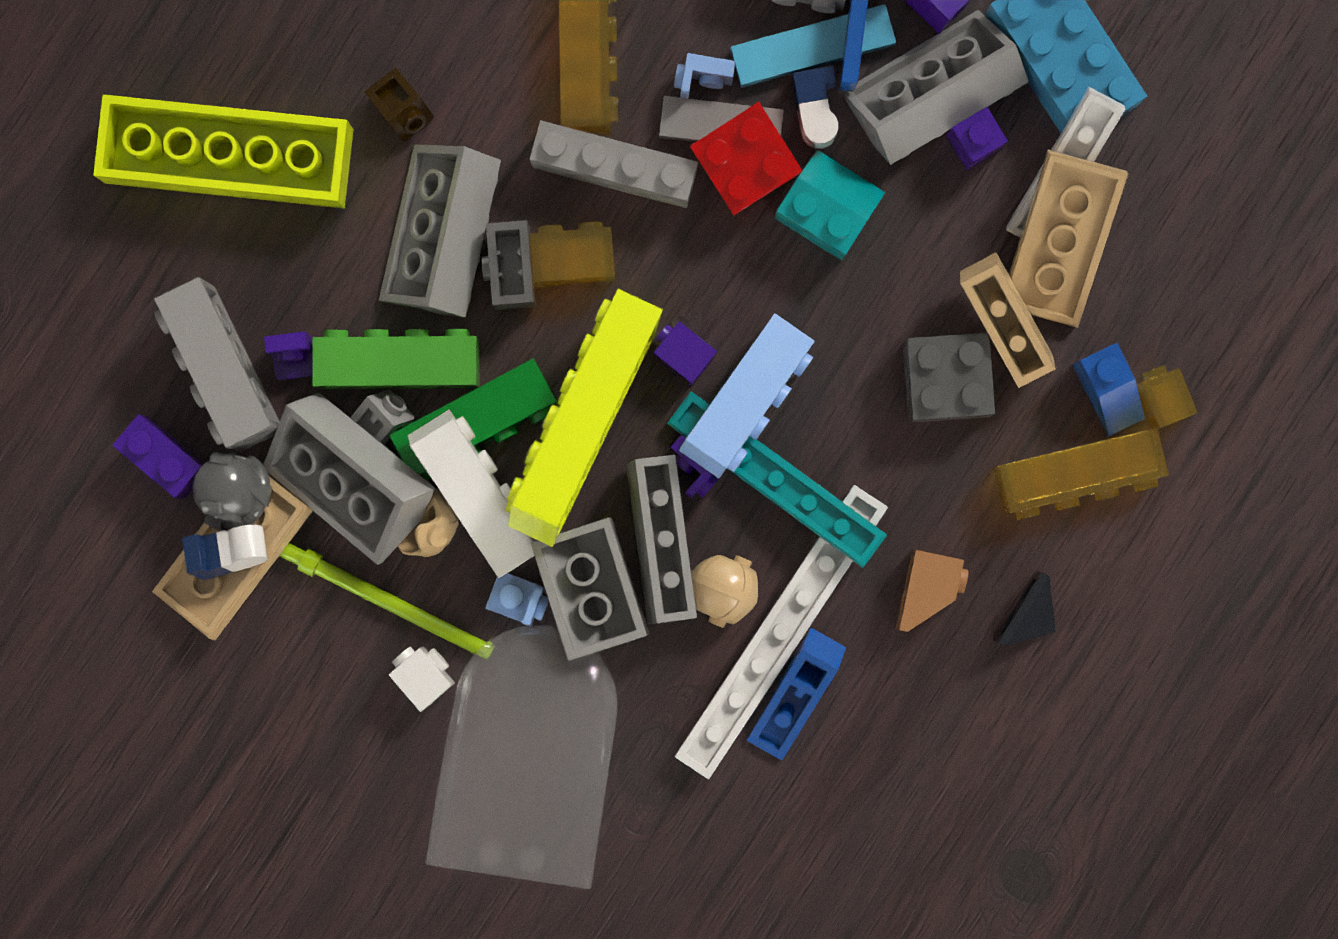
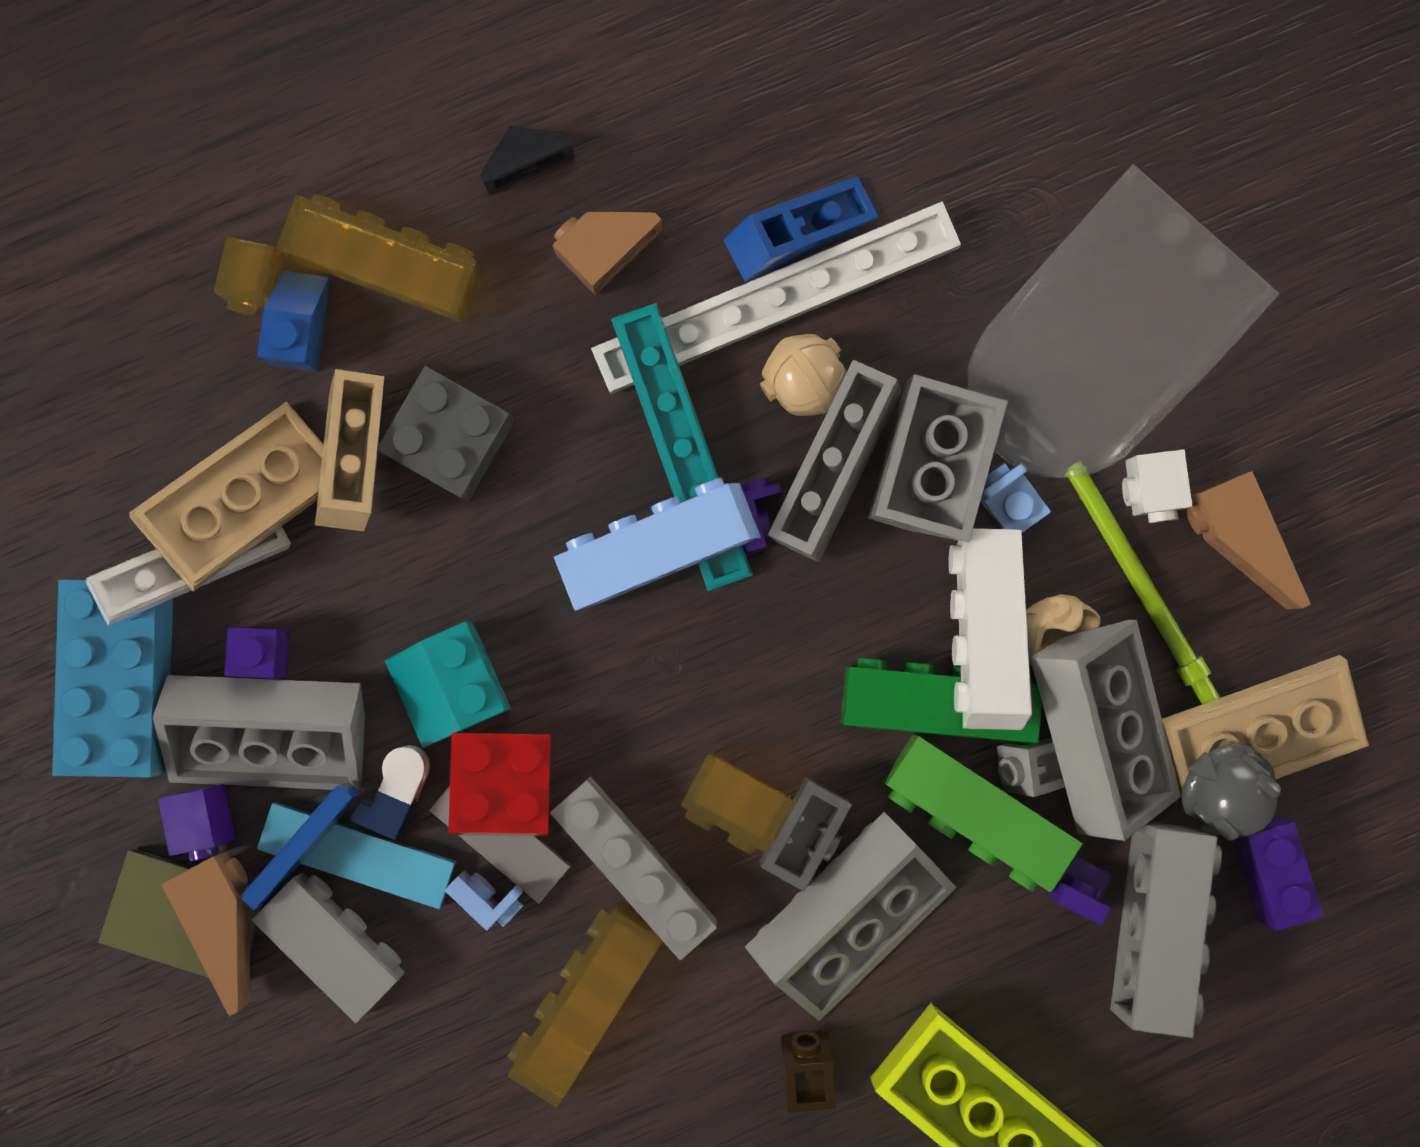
camera: 145 degrees left, 0 degrees up
(224, 551) = (1279, 735): leg -> none
(343, 685) = (1242, 530): none -> medium nougat slope
(585, 415) = (831, 631): neon yellow brick -> none
(683, 352) = (690, 633): dark purple brick -> none

